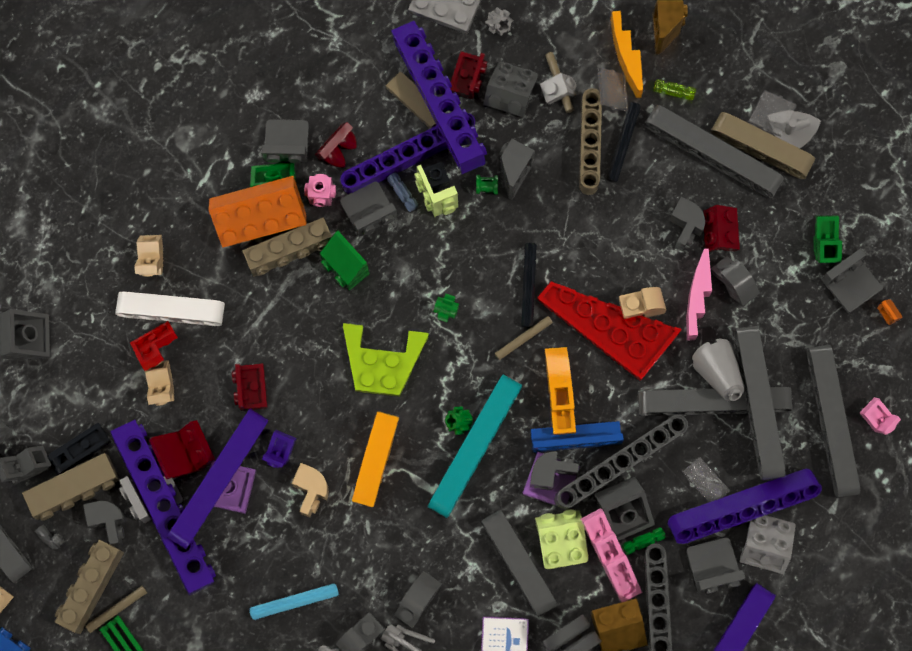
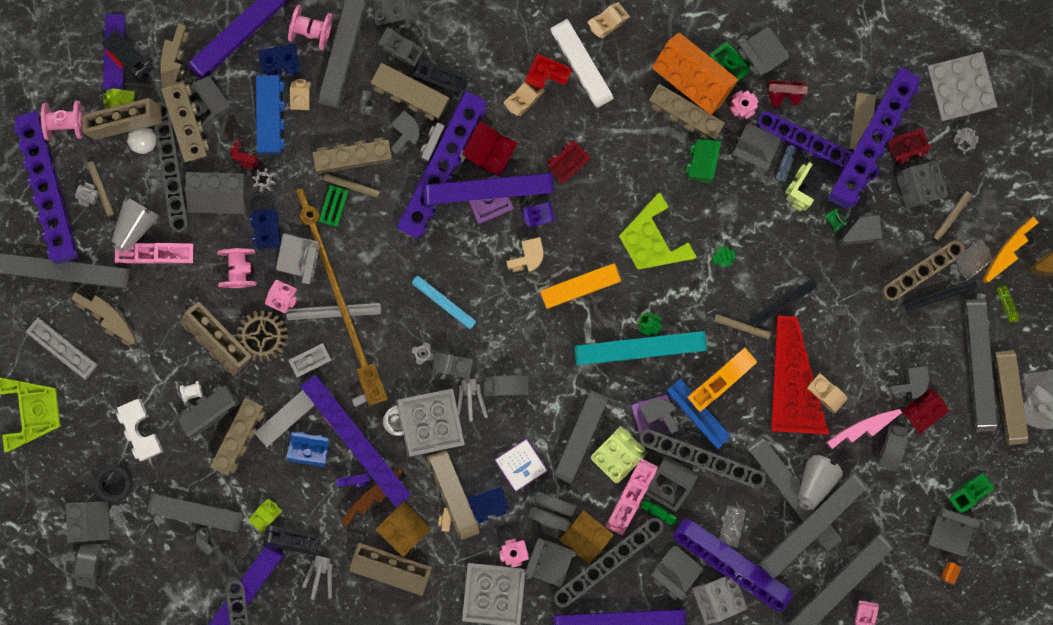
camera: 50 degrees right, 10 degrees up
(558, 88) = (947, 219): light grey bracket -> none

